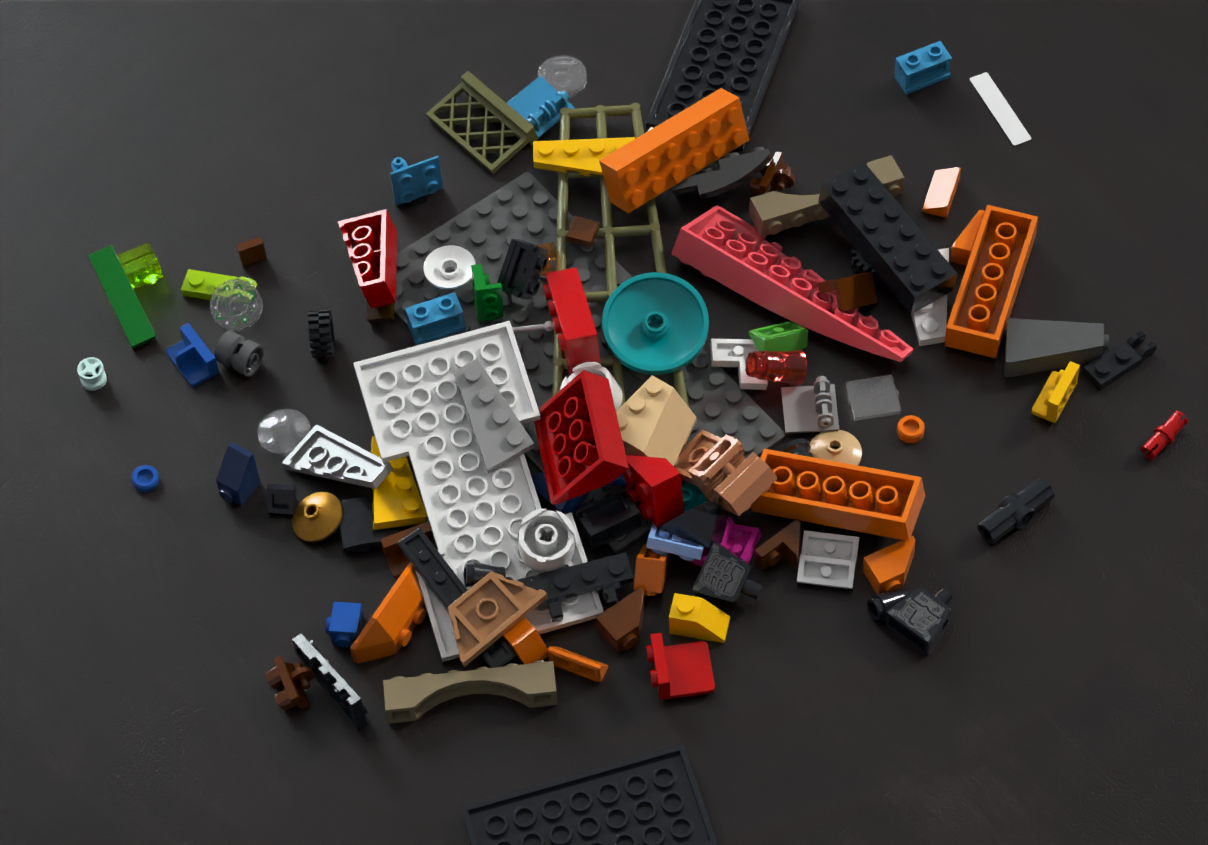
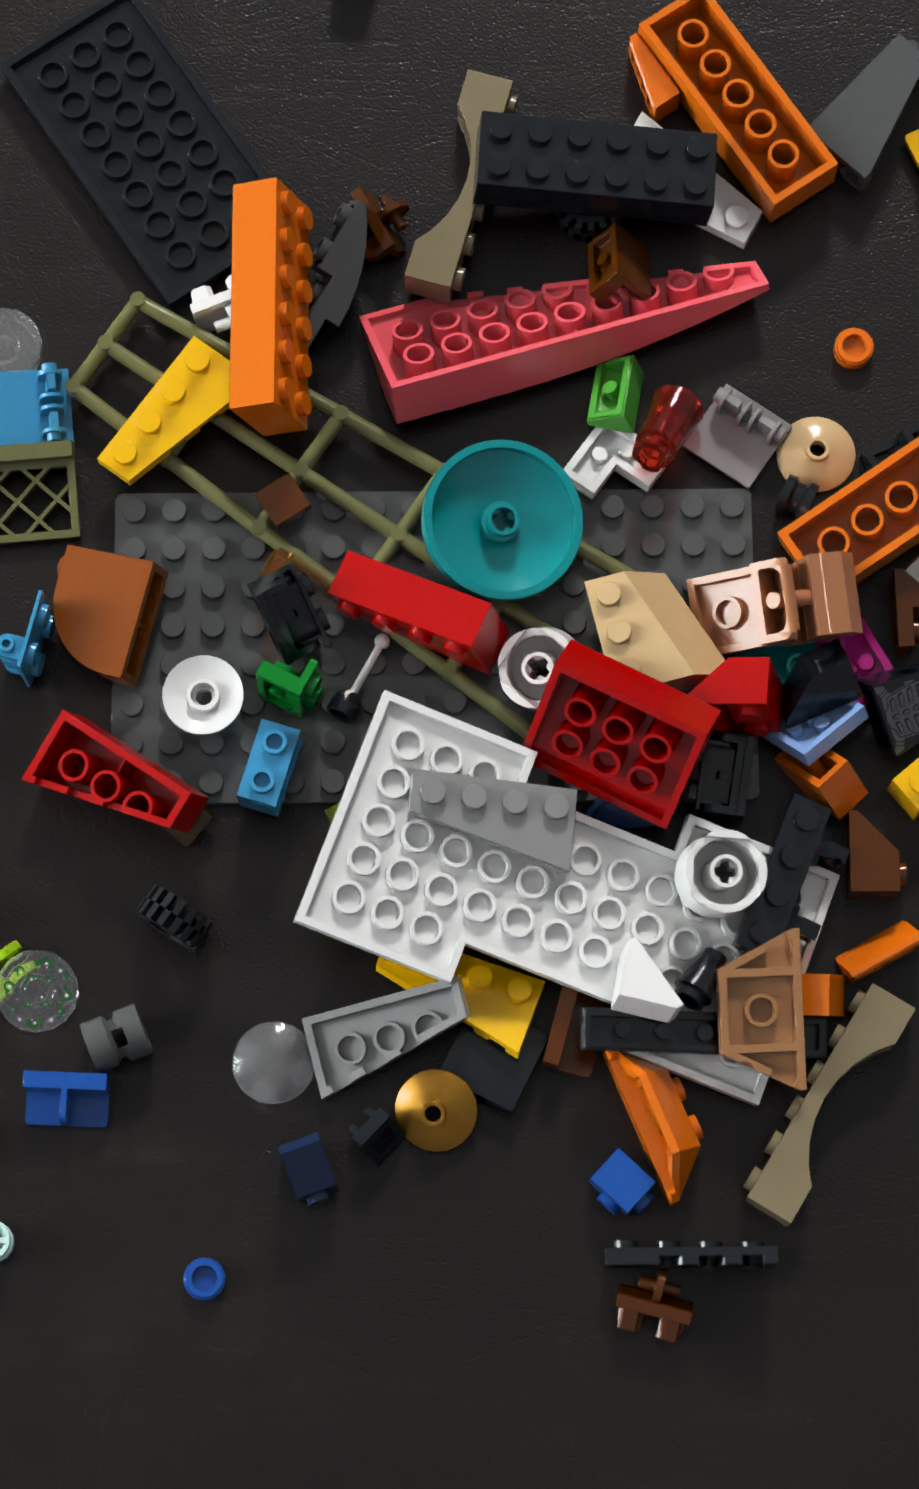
camera: 55 degrees left, 20 degrees up
(449, 542) = (642, 987): none -> white slope
(458, 202) = (107, 610): none -> dark orange brick
(873, 397) = (775, 354): clear piece -> none
(942, 192) = (553, 54): slope -> none

